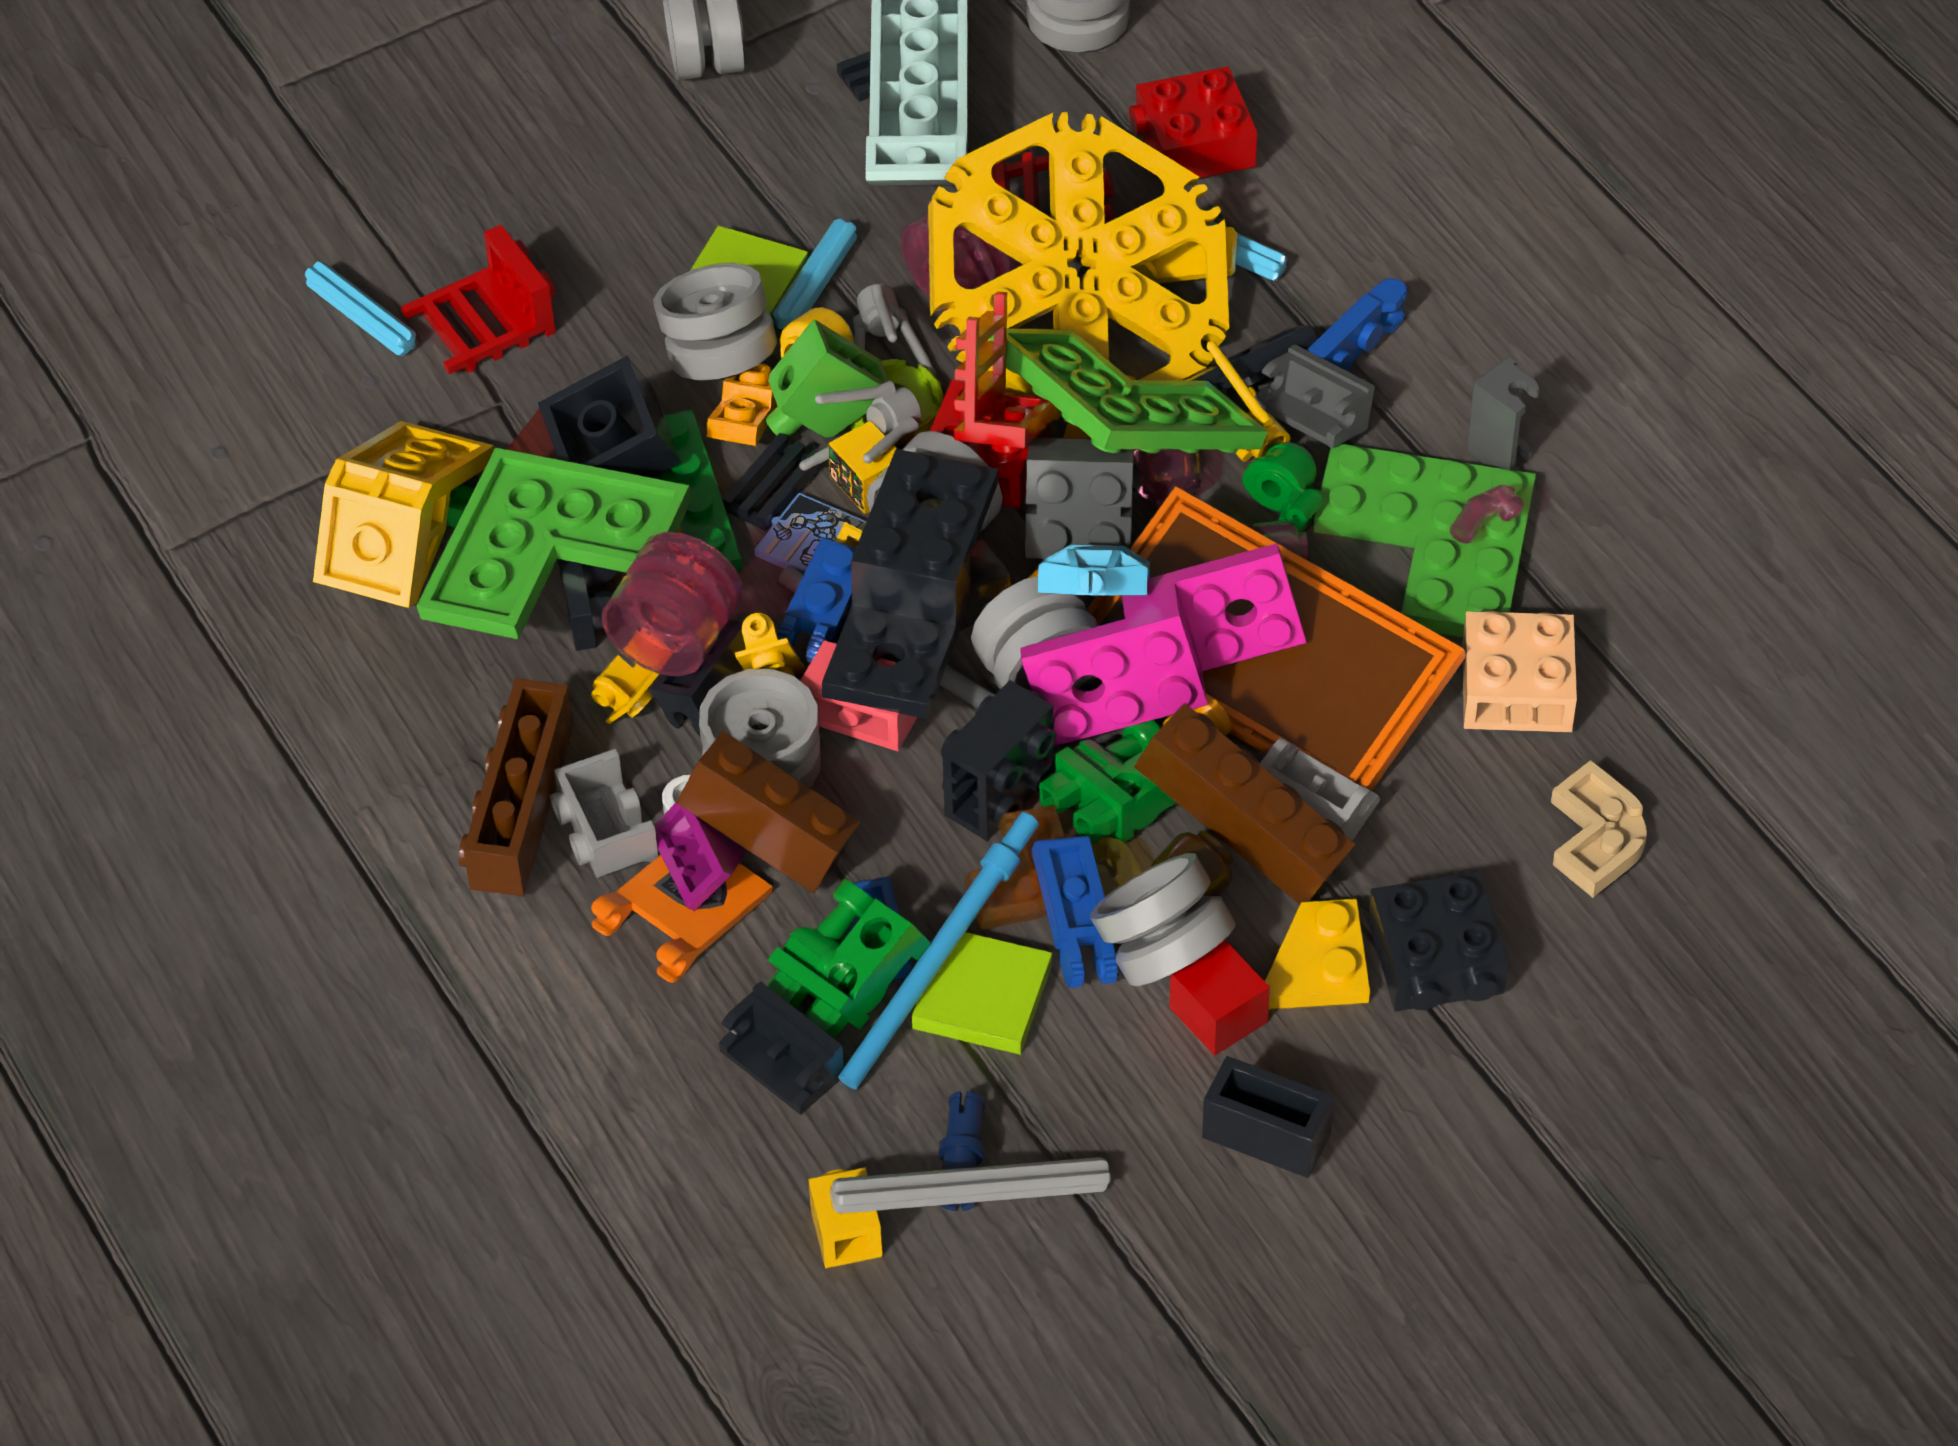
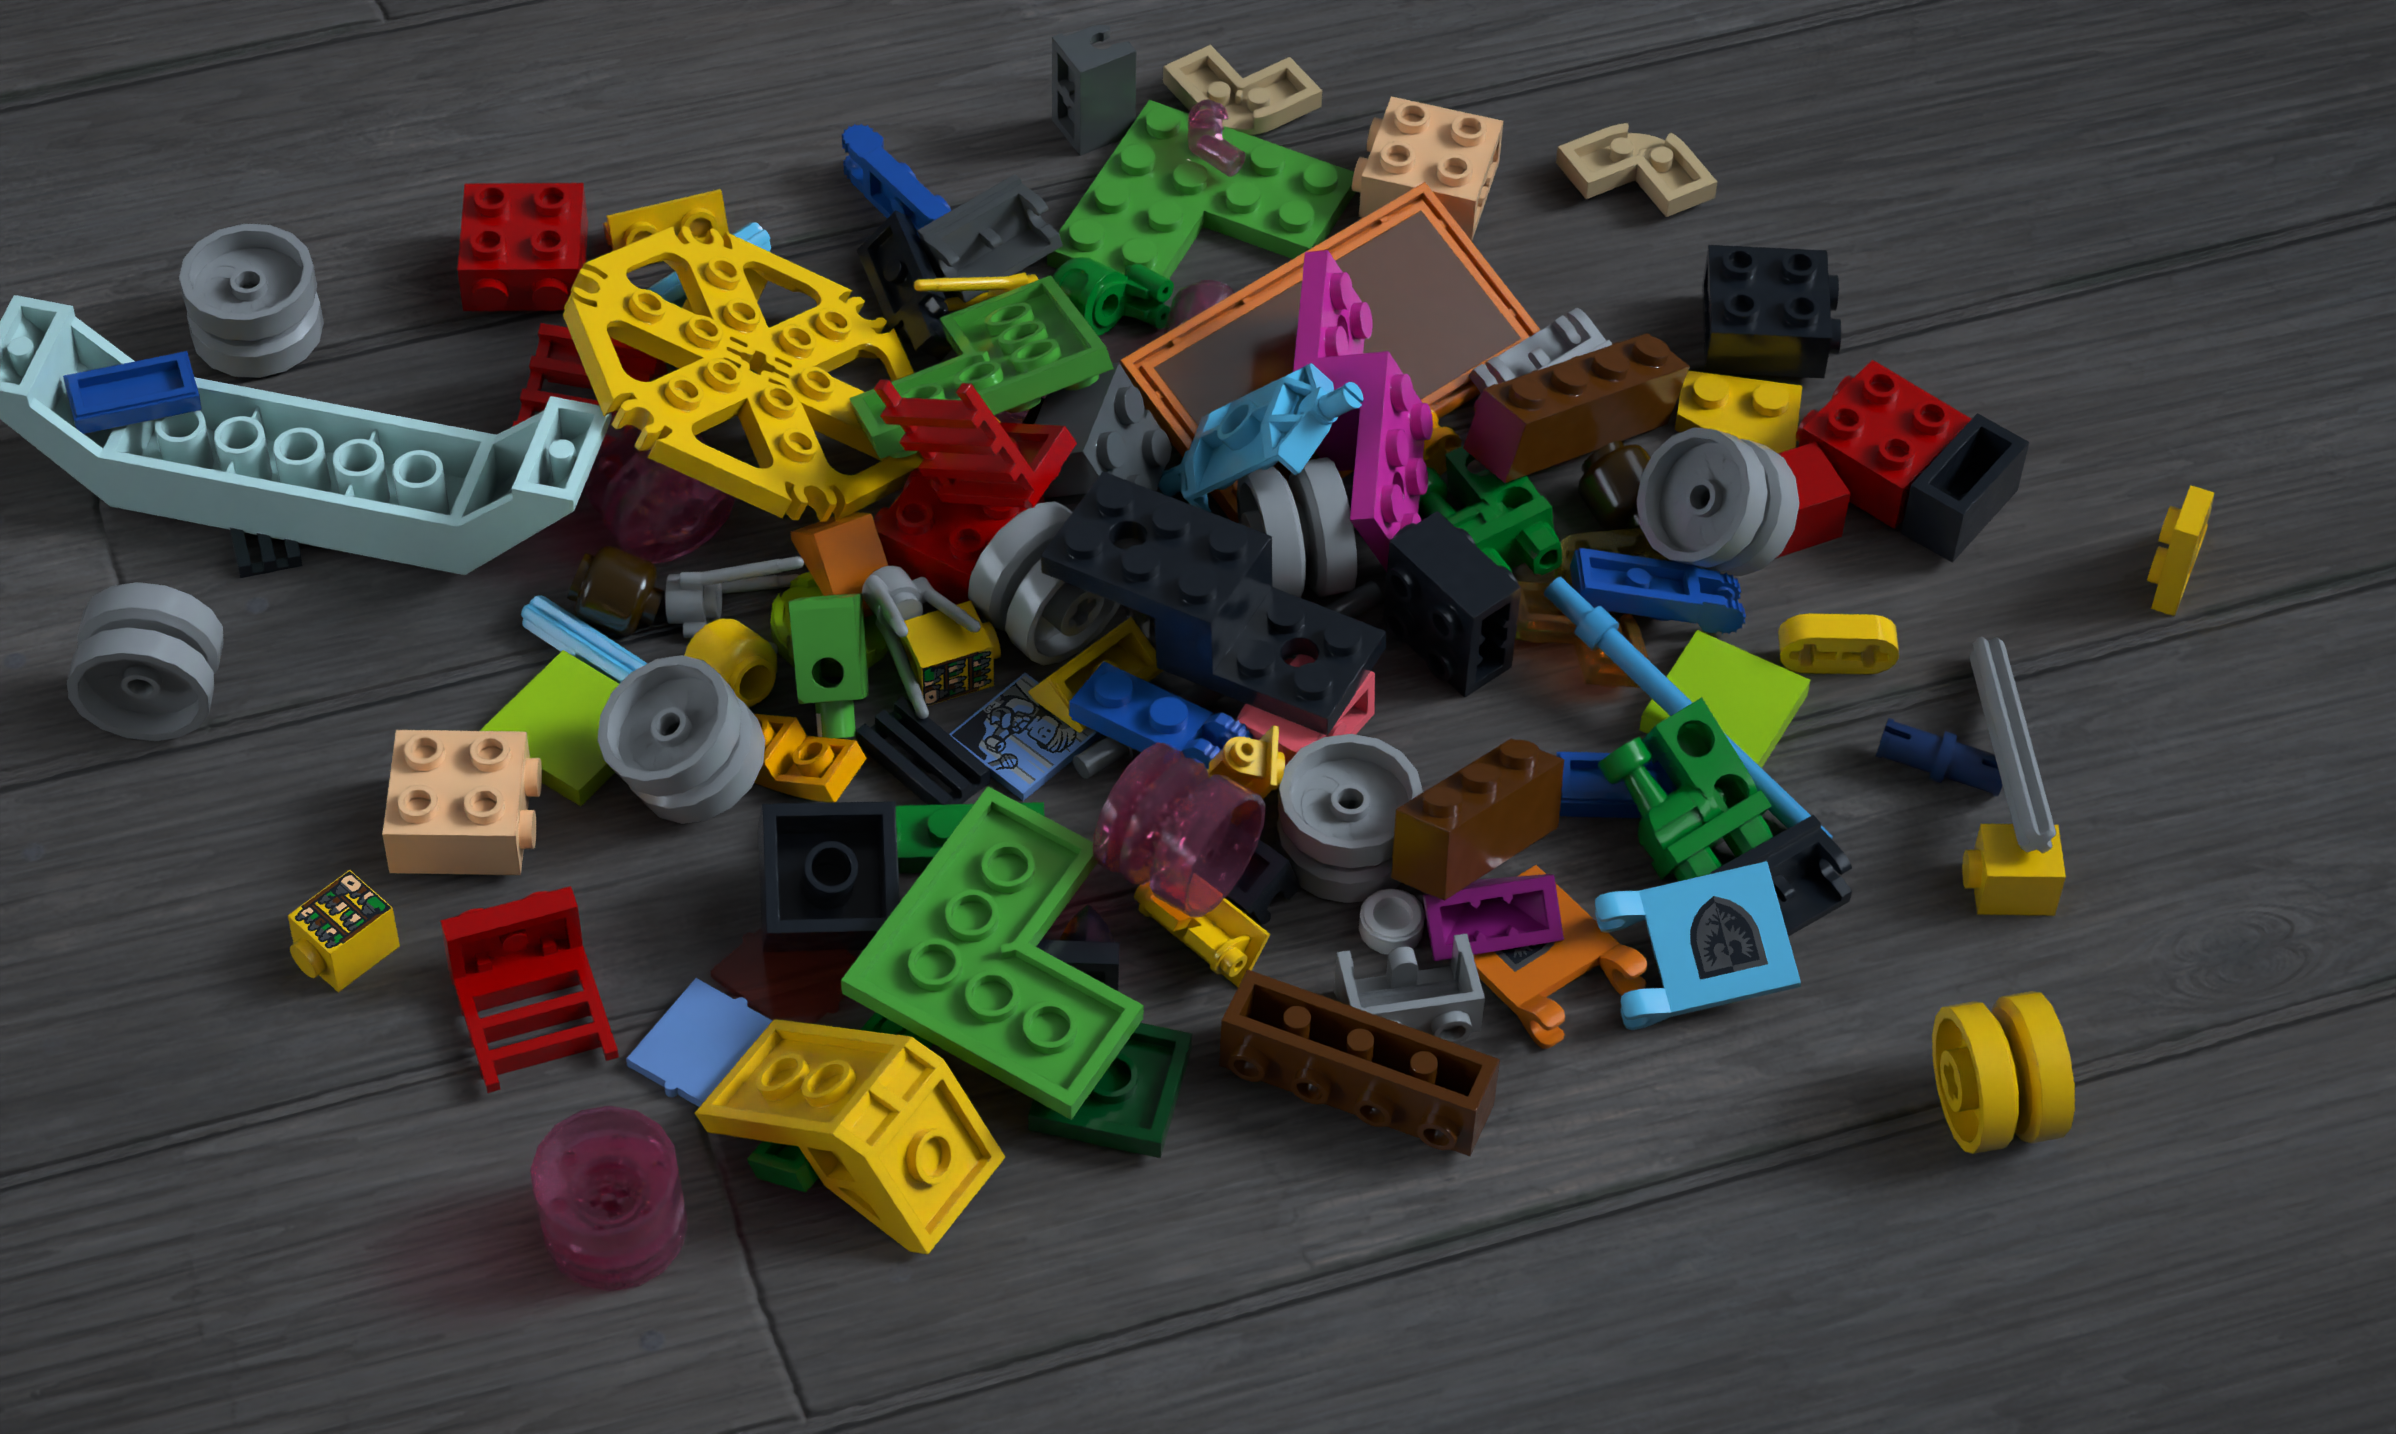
camera: 80 degrees left, 0 degrees up
(297, 379) = (601, 1166): none -> clear pink wheel
(361, 308) = (463, 1136): medium azure axle -> none
(477, 413) = (697, 1042): none -> medium blue piece
(478, 663) = (1132, 1099): none -> dark green plate
(513, 197) = (342, 932): none -> brick
(595, 1210) = (2003, 1072): none -> yellow wheel
(636, 223) = (460, 802): none -> light nougat brick
(699, 999) = (1711, 940): none -> medium azure flag
(866, 259) = (616, 591): none -> dark brown head
(927, 375) = (841, 553): none -> orange slope
(1065, 1055) = (1838, 643): none -> yellow beam
(1255, 1296) = (2184, 533): none -> yellow wing
(1260, 208) = (697, 212): none -> yellow hinge
(1311, 1038) = (1881, 437): none -> red brick
(1560, 533) = (1253, 102): none -> tan plate

